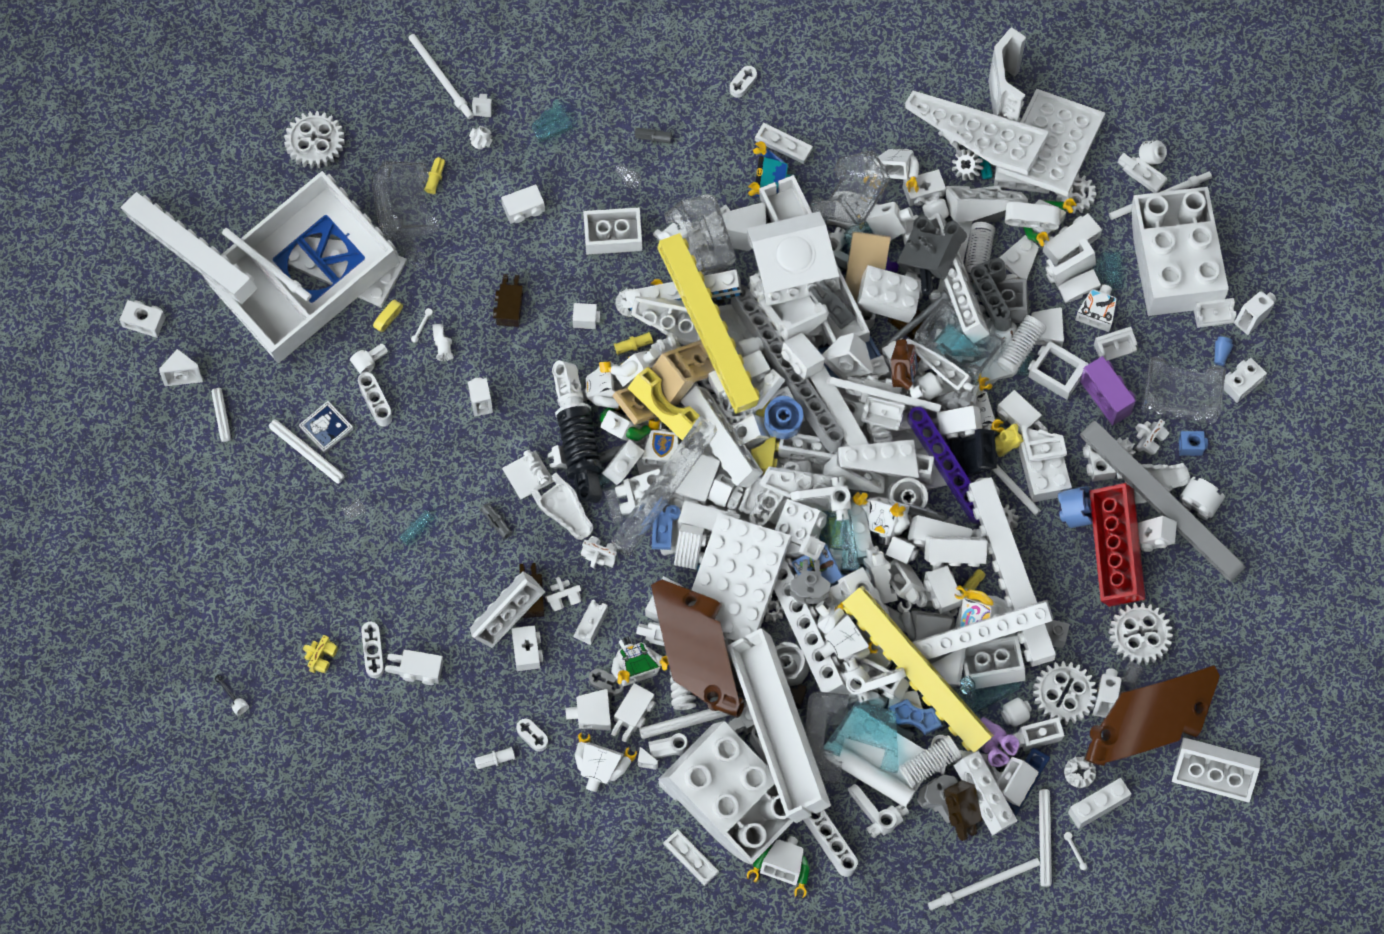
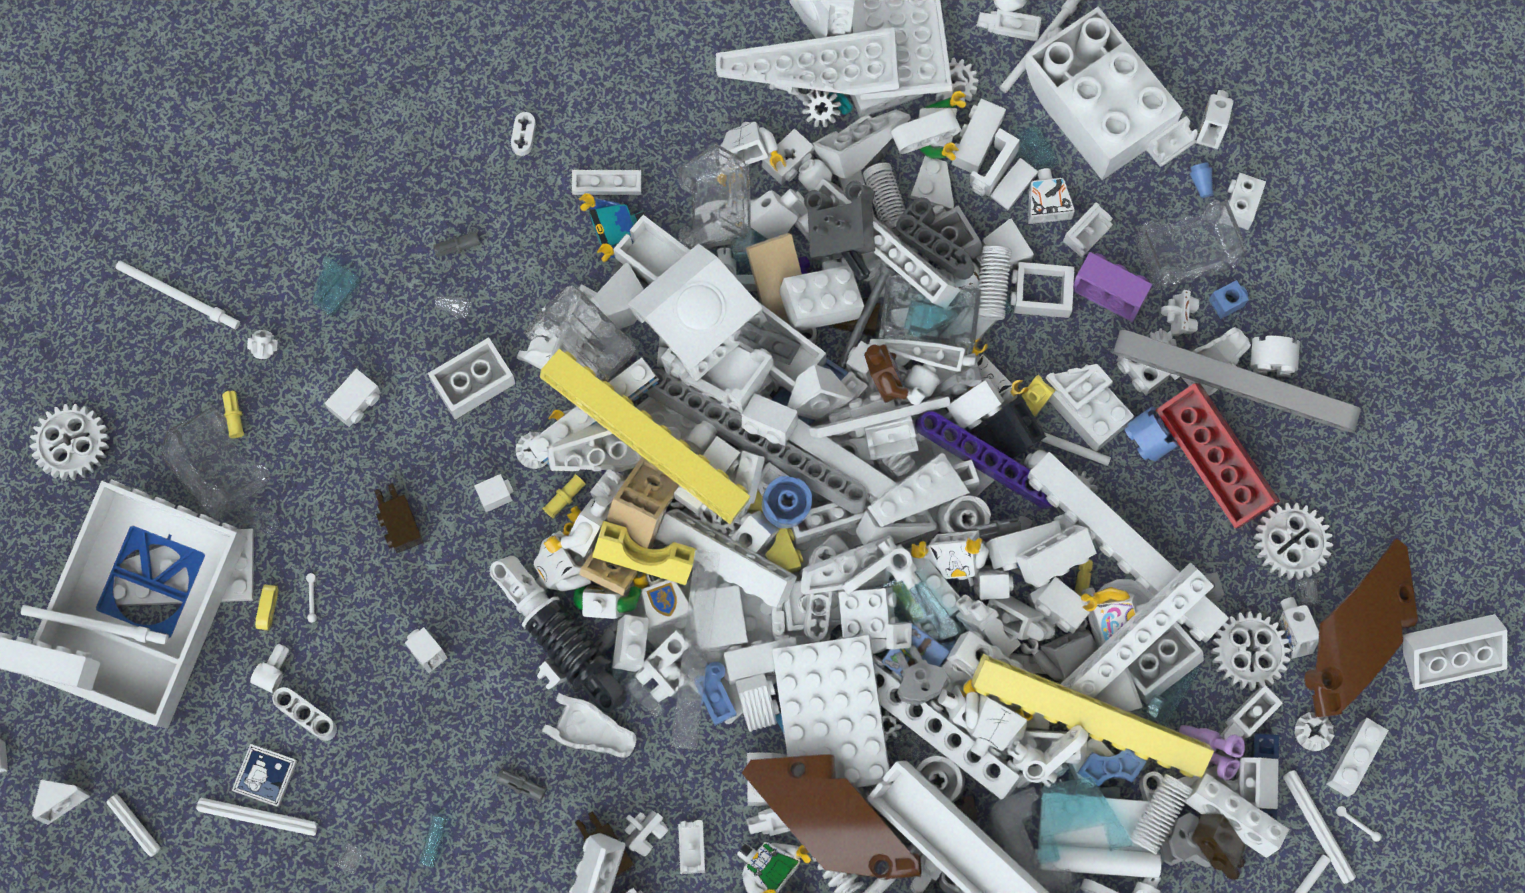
camera: 30 degrees left, 5 degrees up
(442, 342) = (348, 608): white connector -> none
(482, 106) = (244, 306): white tile -> none
(527, 474) = (527, 710): white hinge -> none
(598, 554) = (658, 763): white hips -> none
(721, 490) = (758, 618): white brick -> none
(1016, 712) = (1211, 700): white head -> none
(1020, 412) = (1031, 360): white hinge -> none
(1156, 533) = (1252, 420): white brick -> none

